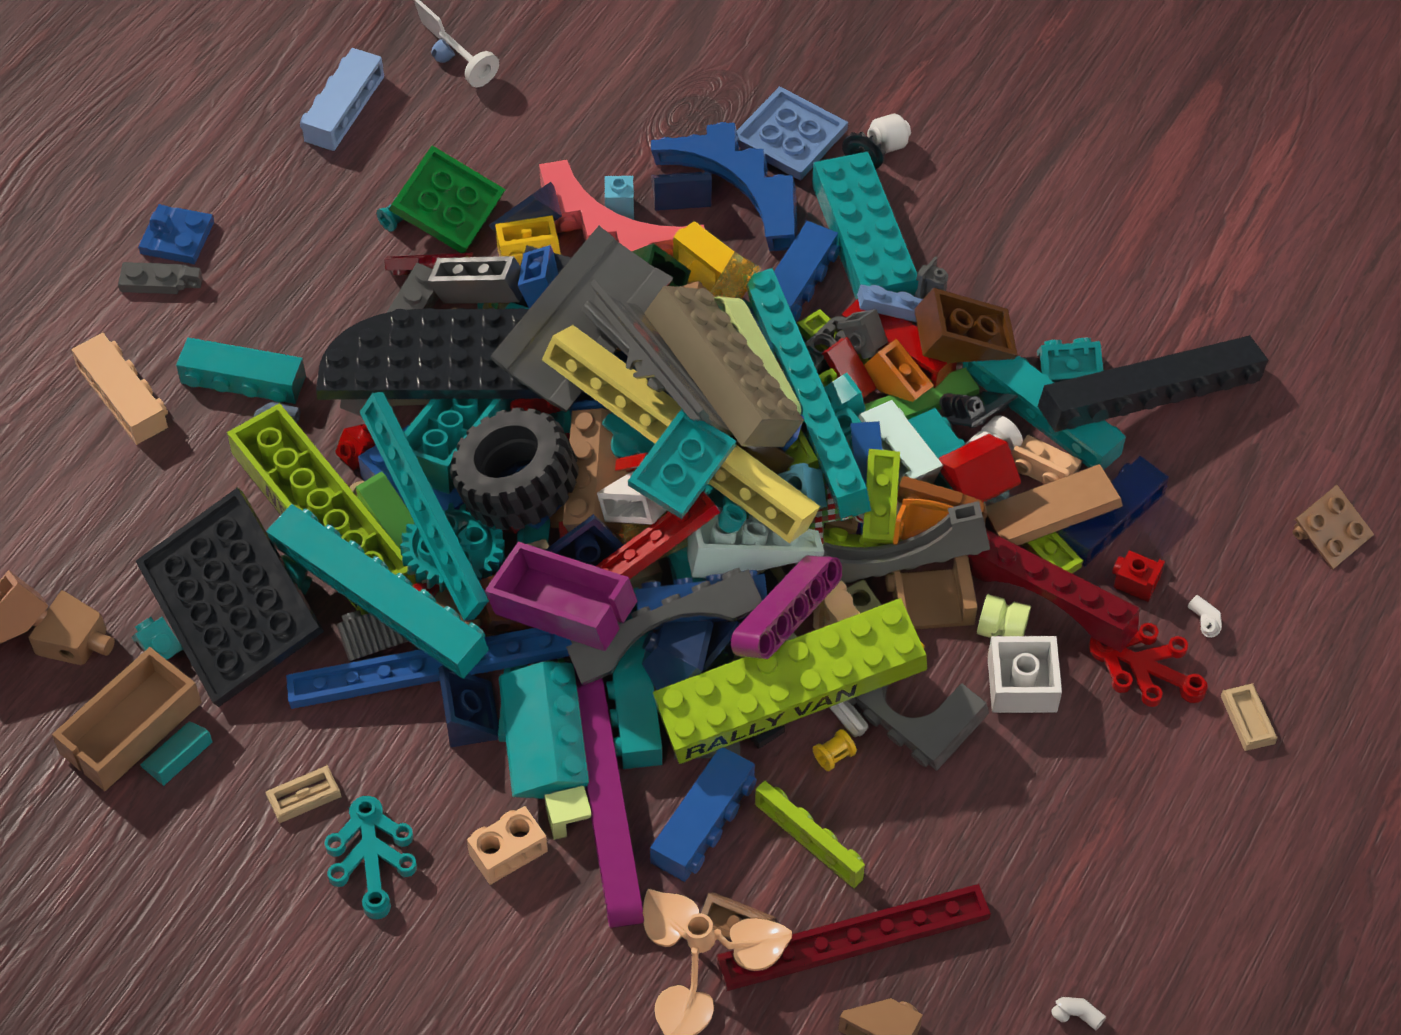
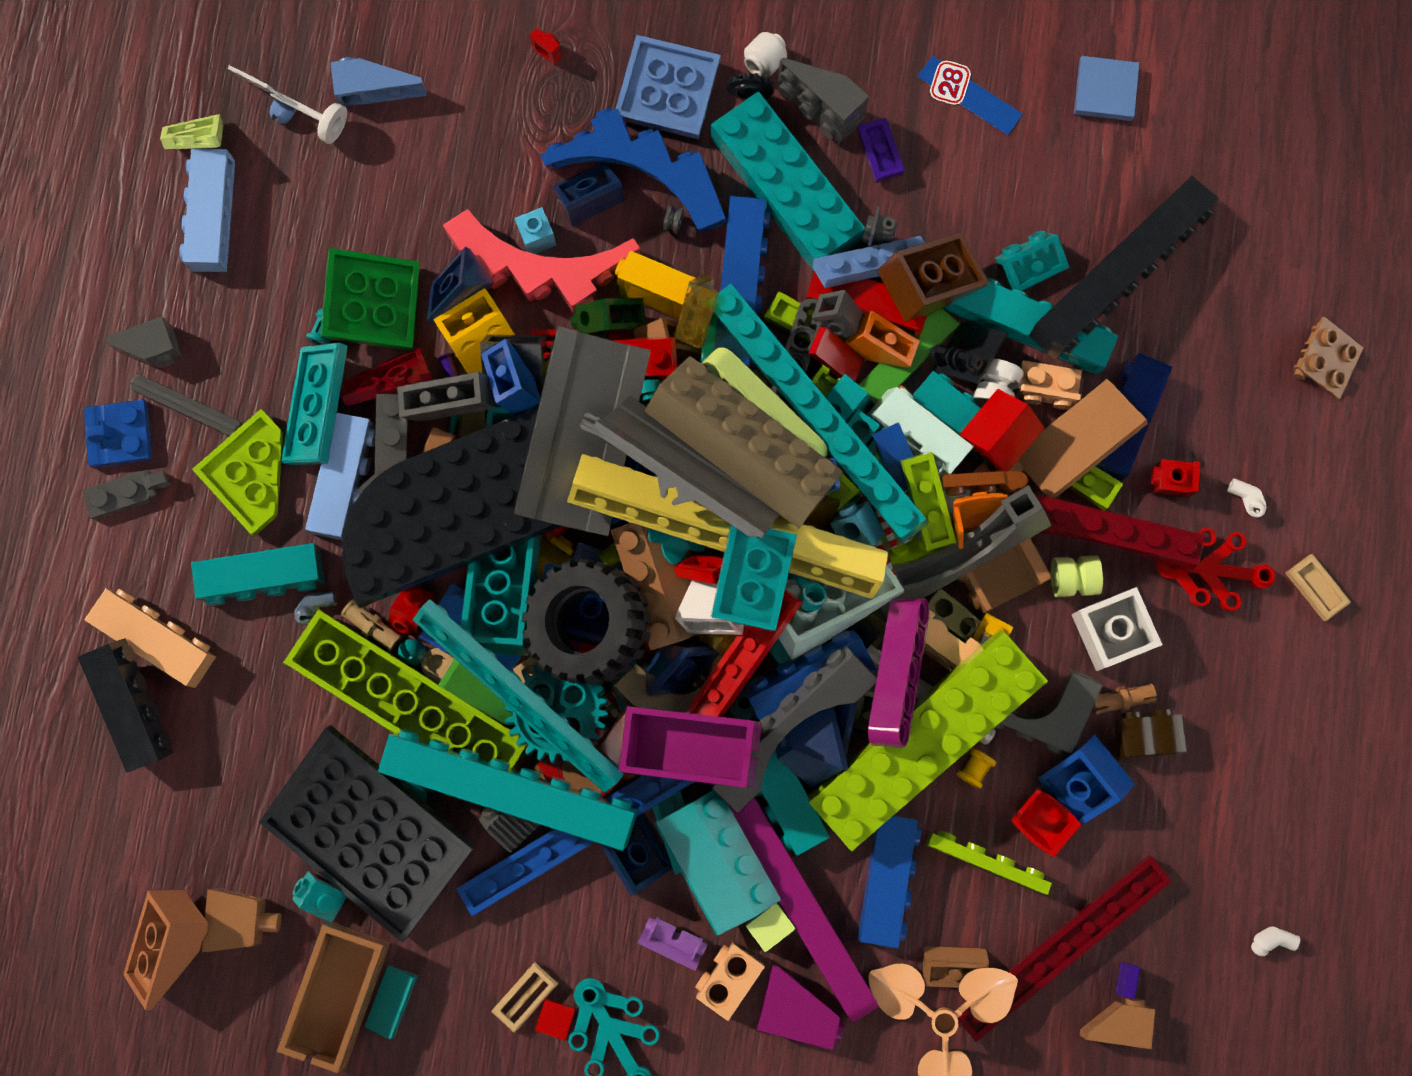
camera: 20 degrees left, 25 degrees up
(71, 424) = (126, 705): none -> black brick
(237, 174) = (148, 343): none -> dark grey slope
(246, 231) = (184, 405): none -> dark grey axle
(272, 294) = (247, 472): none -> lime plate
(320, 440) = (371, 625): none -> tan pin
(322, 821) = (555, 1019): none -> red tile
(347, 473) = (415, 649): none -> teal hinge
(357, 260) = (314, 404): none -> teal tile
(367, 299) = (342, 476): none -> light blue brick
(368, 43) = (193, 134): none -> yellowish green wing
(477, 801) = (663, 939): none -> medium lavender hinge
(529, 52) = (367, 82): none -> medium blue slope
(558, 895) = (796, 1012): none -> magenta slope
(695, 71) = (545, 45): none -> red plate
(748, 228) = (673, 219): none -> dark grey bush
(881, 814) = (1046, 822): none -> red piece
(909, 985) = (1127, 980): none -> dark purple tile
(927, 176) = (824, 96): none -> dark grey slope
(940, 797) = (1087, 780): none -> blue slope
(963, 235) = (880, 150): none -> dark purple plate
(1008, 743) = (1124, 698): none -> medium nougat pin
(1022, 780) = (1150, 735): none -> dark brown brick
(1057, 212) = (952, 84): none -> blue sticker
(1199, 255) = (1106, 88): none -> medium blue tile

